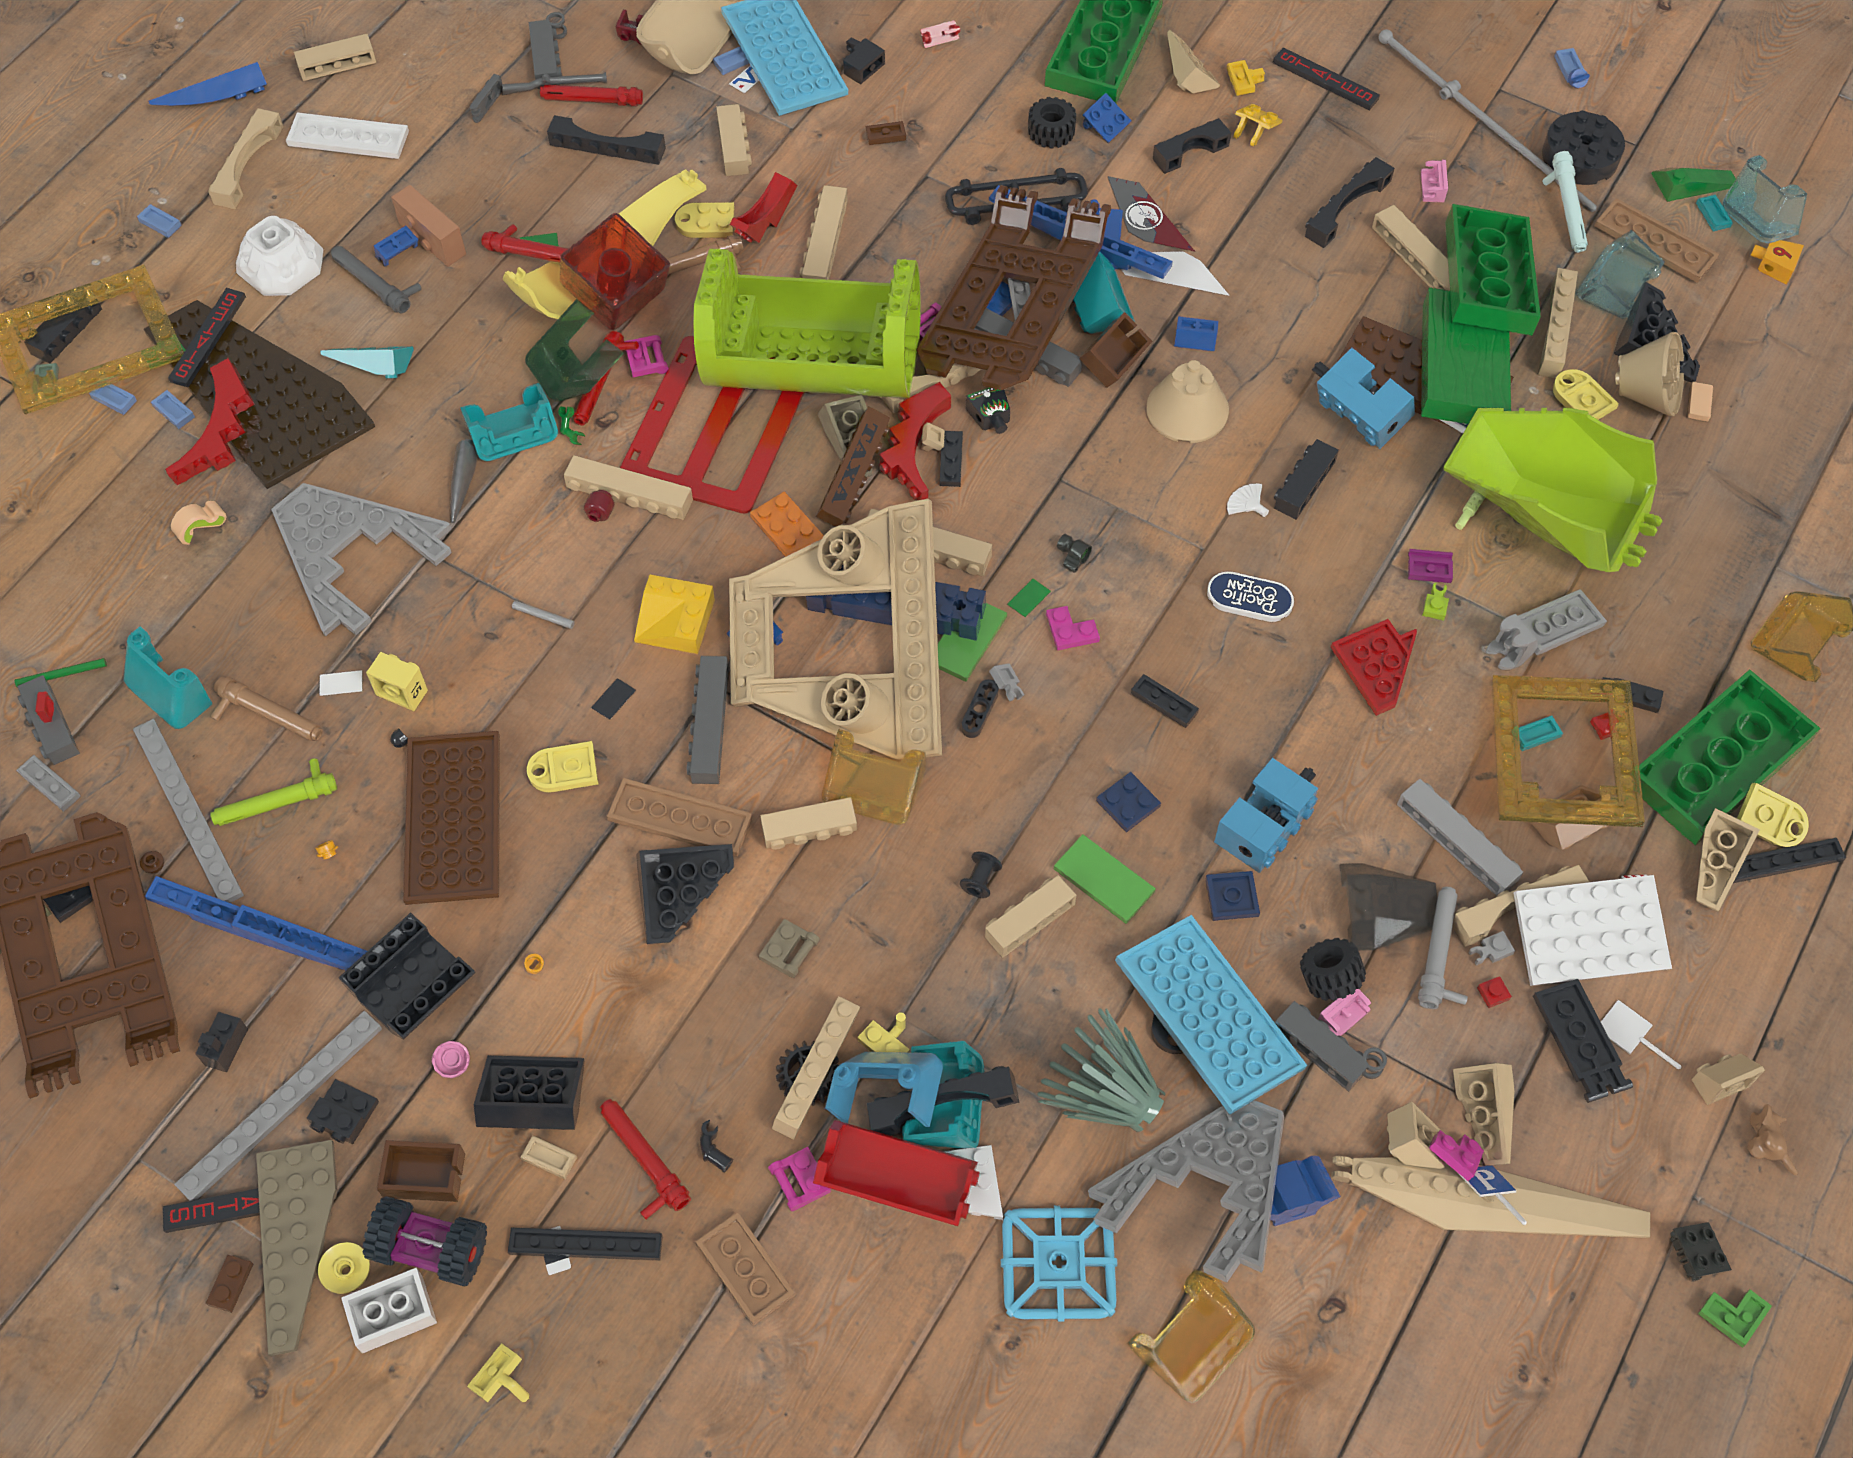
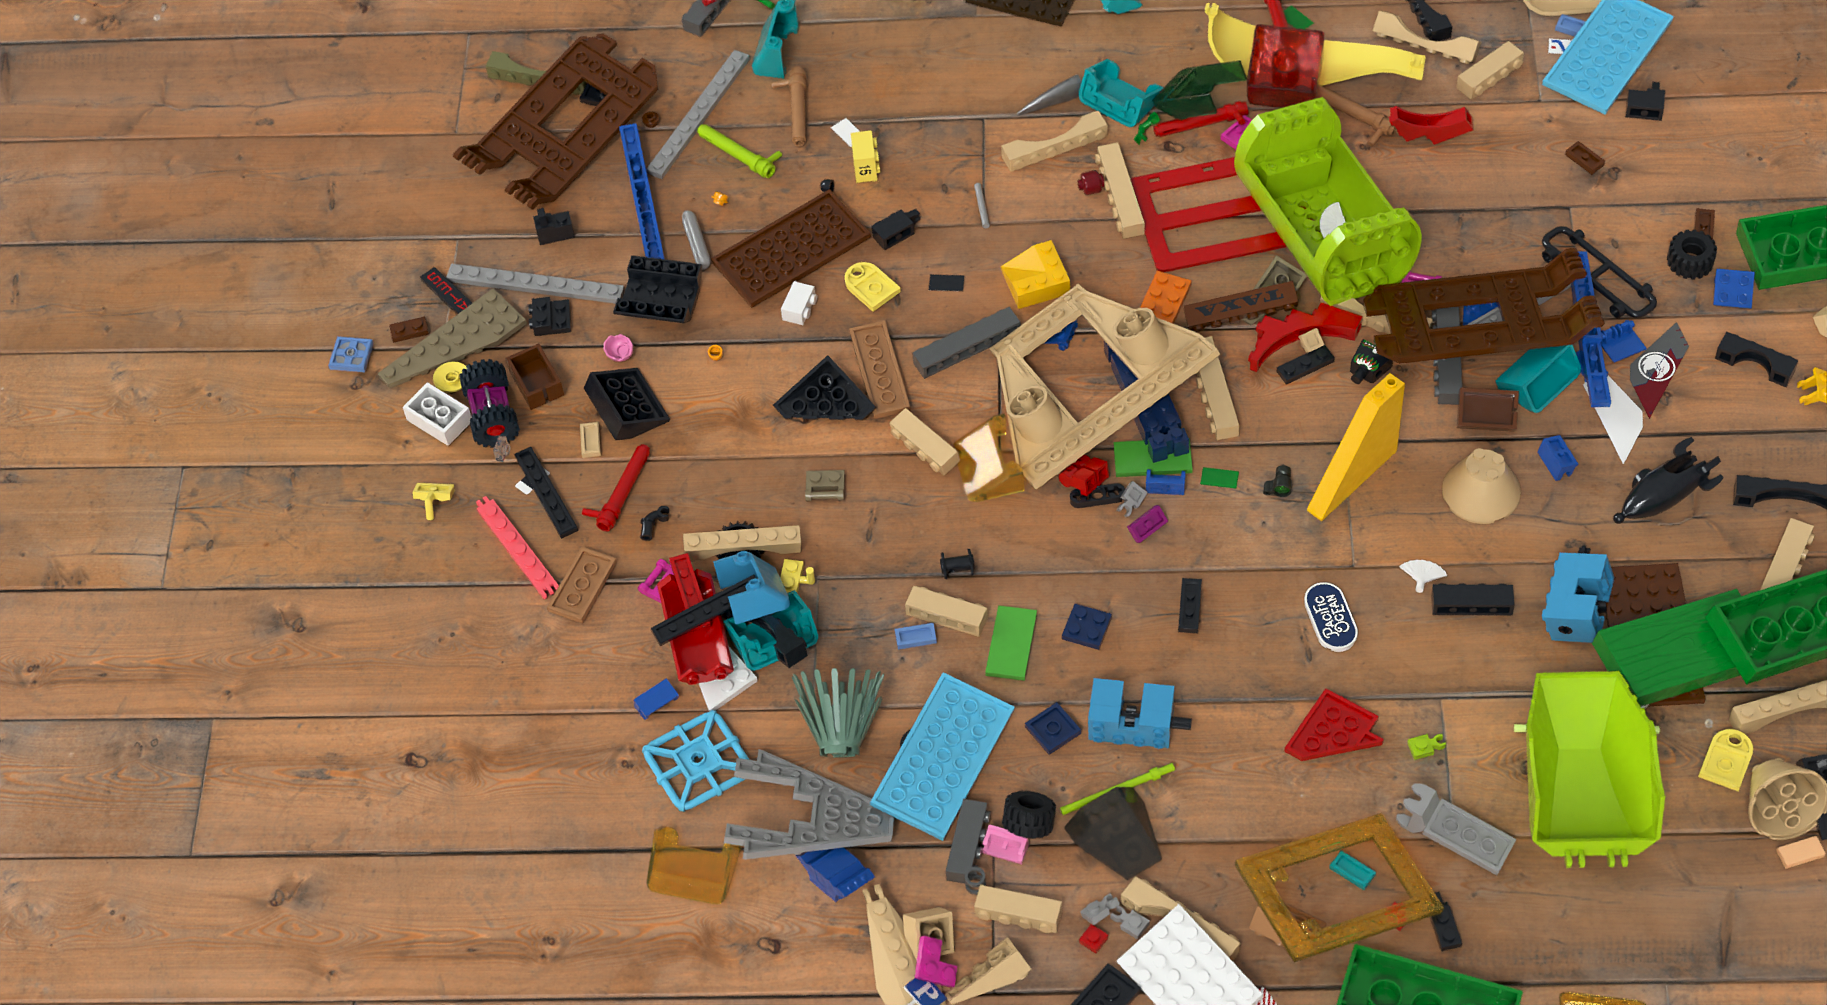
camera: 65 degrees right, 5 degrees down
(48, 783) = (668, 35): light grey tile -> none
(213, 1372) = (351, 354): none -> medium blue piece
(323, 522) = (954, 44): light grey wing -> none
(362, 903) = (696, 239): none -> light grey piece
(492, 1261) = (501, 448): none -> clear plate
(509, 706) = (895, 228): none -> black hinge
(511, 542) = (1024, 153): none -> tan arch
(534, 847) = (798, 303): none -> white brick
(638, 1316) = (516, 547): none -> coral hinge
(690, 143) = (1393, 26): none -> tan arch
(705, 220) = (1402, 95): light yellow plate -> none
(819, 340) = (1331, 219): none -> white hand
(825, 233) = (1445, 176): tan brick -> none
(853, 1152) = (687, 583): none -> red plate
(889, 1148) = (697, 614): none -> black tile
(940, 34) = (1721, 135): hinge -> none
(954, 1266) = (655, 698): none -> blue hinge
(955, 703) = (1085, 474): none -> red legs
(1007, 642) = (1165, 484): none -> blue hinge
(1021, 97) = (1704, 221): none -> reddish brown plate
(1037, 962) = (915, 636): none -> medium blue tile
(1046, 683) = (1147, 524): none -> magenta plate
(1068, 634) = (1205, 516): dark pink plate -> none
(1105, 456) = (1364, 448): none -> yellow slope
(1288, 280) = (1667, 484): none -> black piece
(1337, 838) = (1153, 774): none -> lime bar
(1427, 1041) = (1018, 909): none -> tan brick
(1430, 566) = (1456, 724): magenta plate -> none
(1433, 978) = (1072, 889): light grey cylinder -> none
(1459, 837) = (1210, 854): light grey brick -> none
(1468, 970) = (1099, 910): none -> light grey plate

